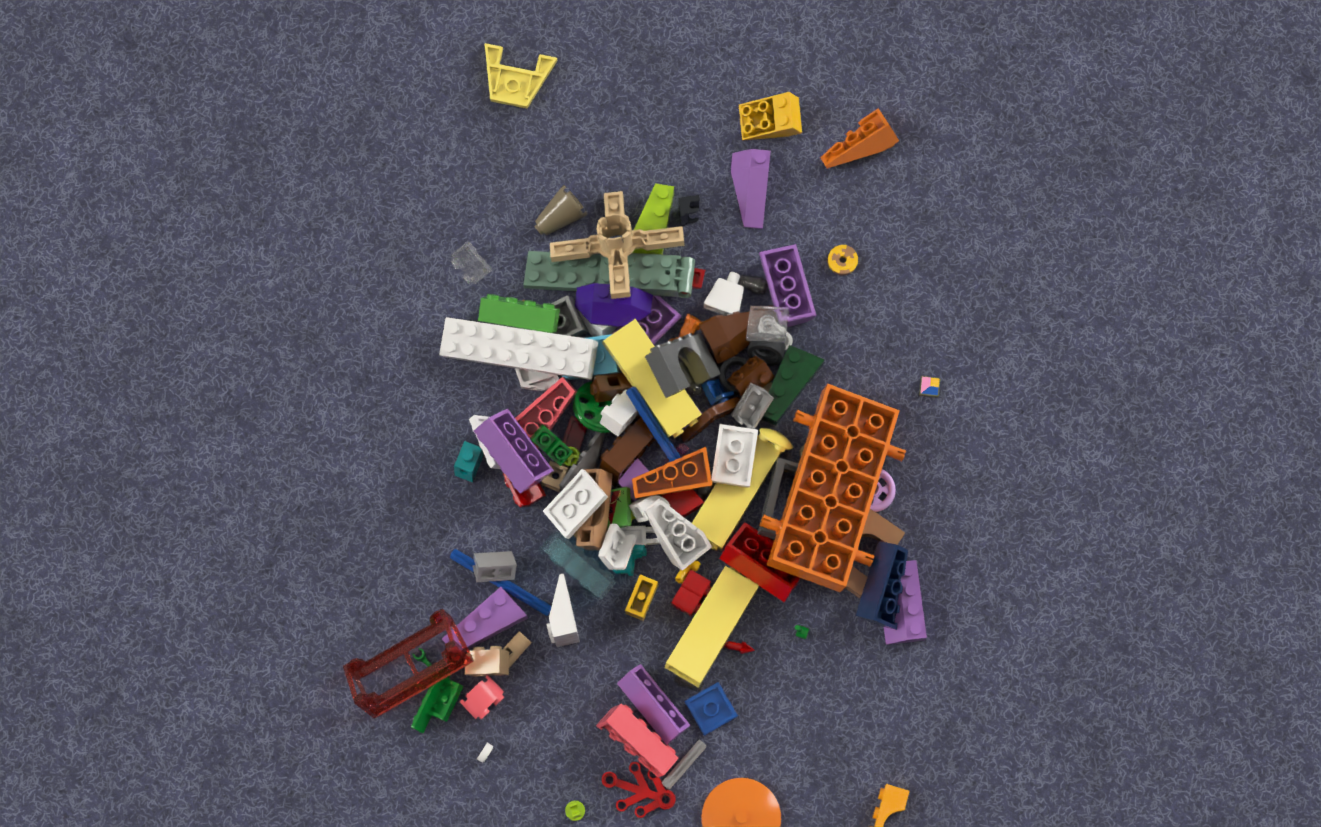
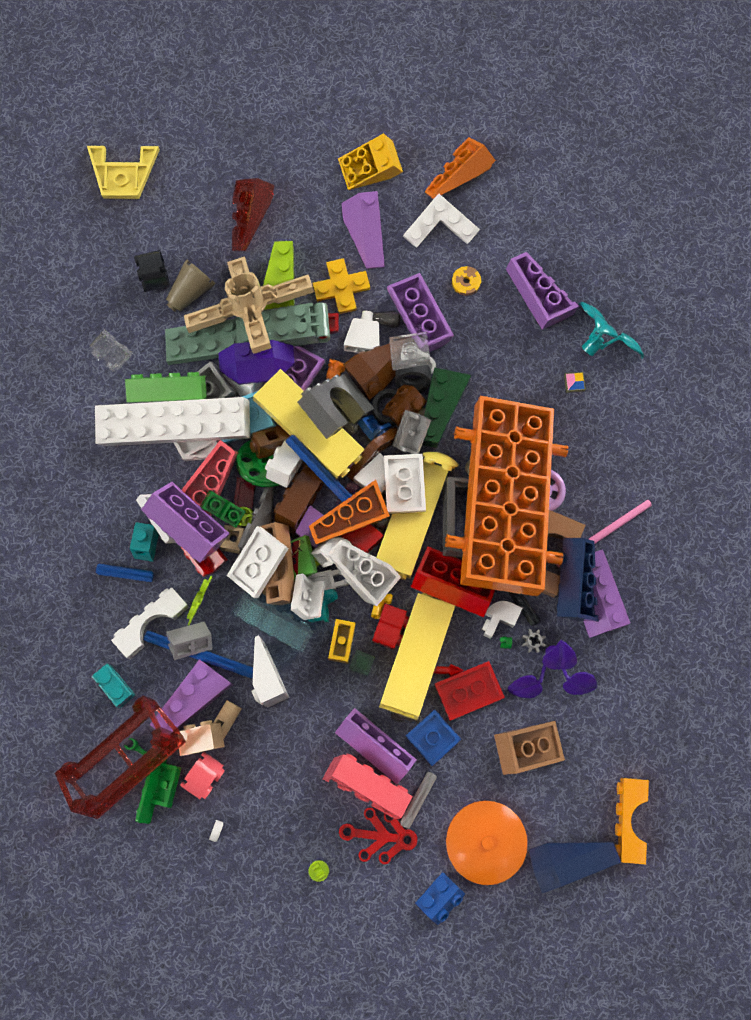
camera: 15 degrees left, 0 degrees up
(413, 595) = (113, 685): none -> teal brick
(437, 553) = (130, 639): none -> white arch
(443, 488) = (123, 572): none -> blue axle
(510, 528) = (198, 599): none -> lime plant
(526, 189) = (152, 270): none -> black brick
(640, 138) = (252, 201): none -> clear red wedge
(657, 623) = (362, 663): none -> clear green brick
(687, 206) = (309, 256): black hinge -> none
(705, 438) = (372, 471): none -> white torso
(714, 240) = (341, 286): none -> yellow plate
(755, 671) = (469, 690): none -> red plate
(802, 737) = (529, 748): none -> medium nougat slope
(804, 601) = (500, 612): none -> white brick
(827, 182) = (441, 211): none -> white plate
(829, 602) = (527, 610): none -> black axle
(830, 642) = (539, 639): none -> light grey gear
(845, 655) = (558, 658): none -> dark purple plant
(914, 288) = (539, 291): none -> medium lavender wedge
(942, 537) = (618, 523): none -> bright pink bar
(963, 342) = (595, 341): none -> teal plant

